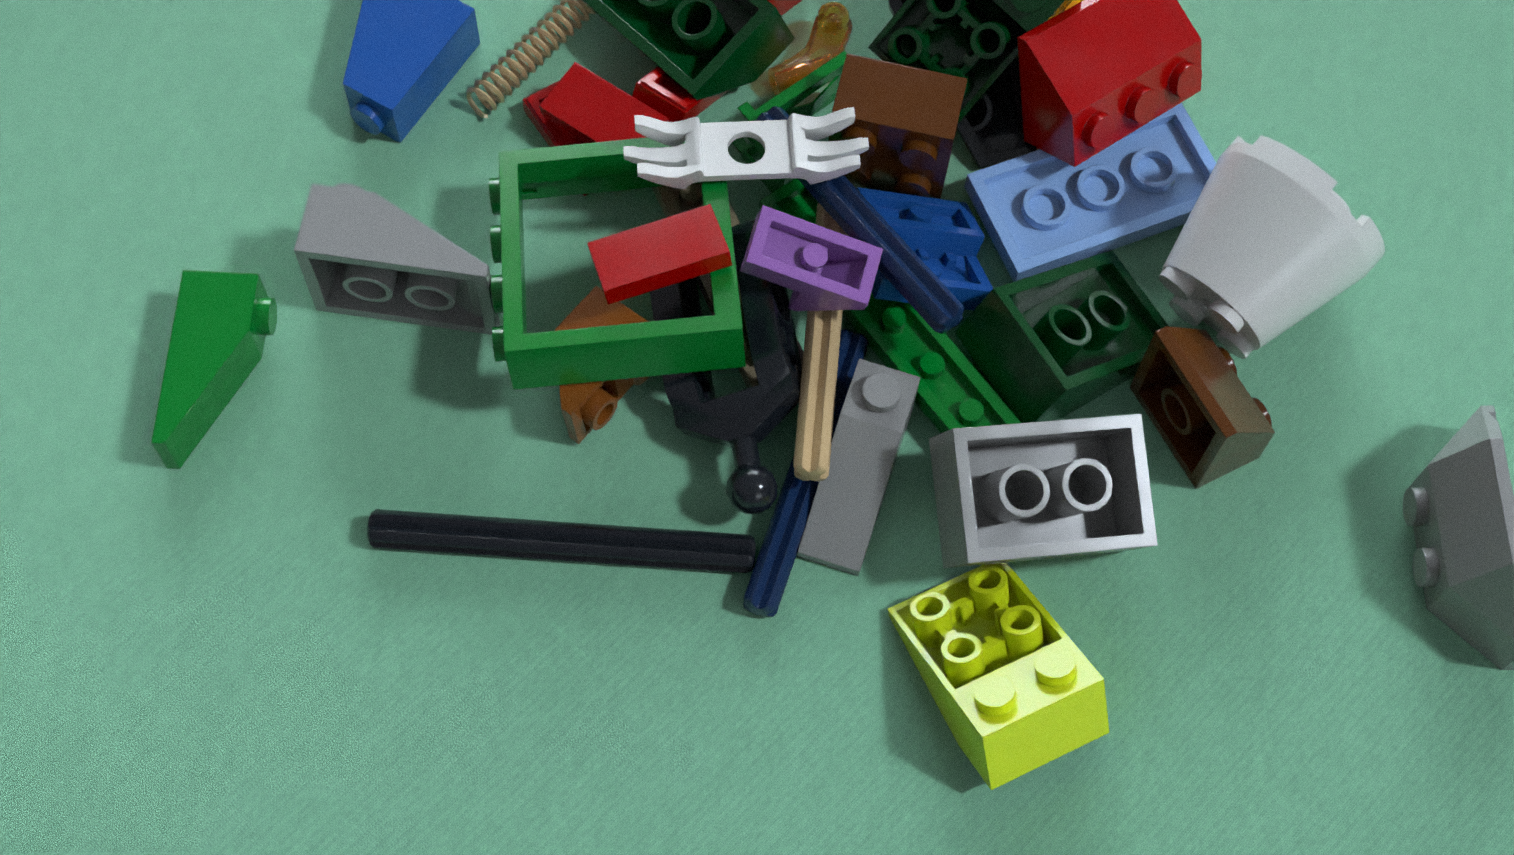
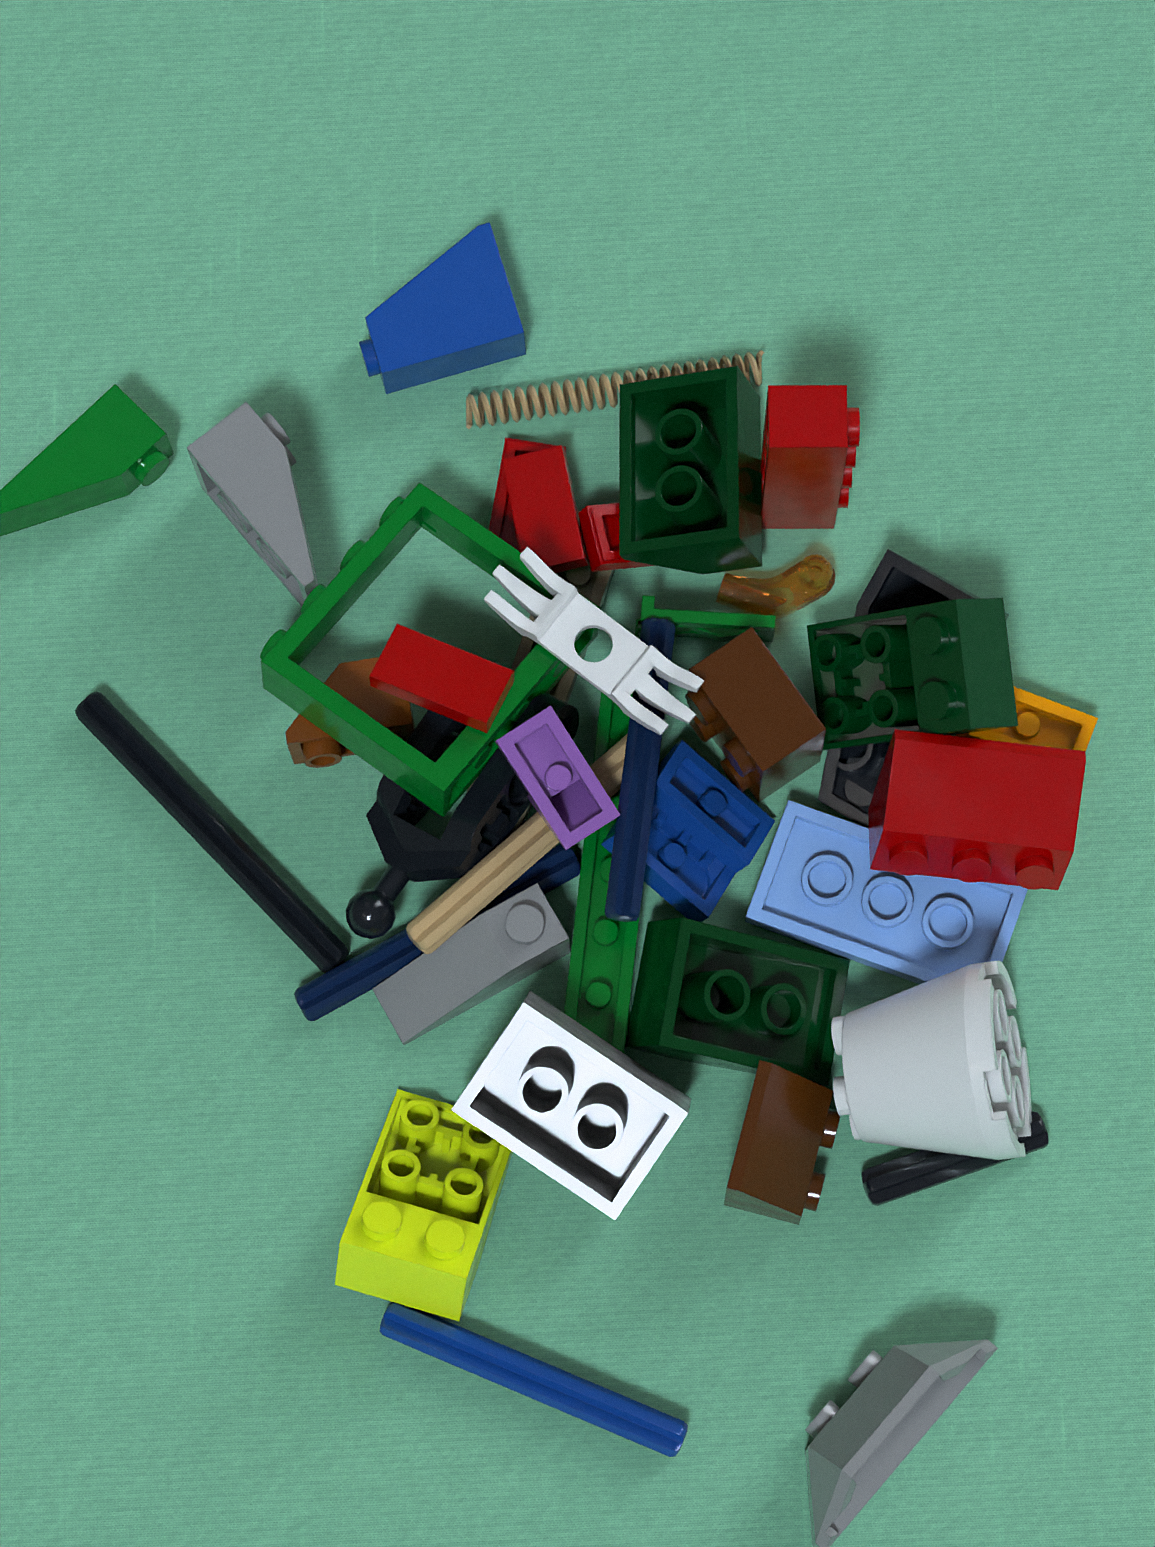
camera: 50 degrees right, 10 degrees up
(1198, 728) = (534, 1378): none -> blue axle
(1303, 348) = (930, 1168): none -> black axle

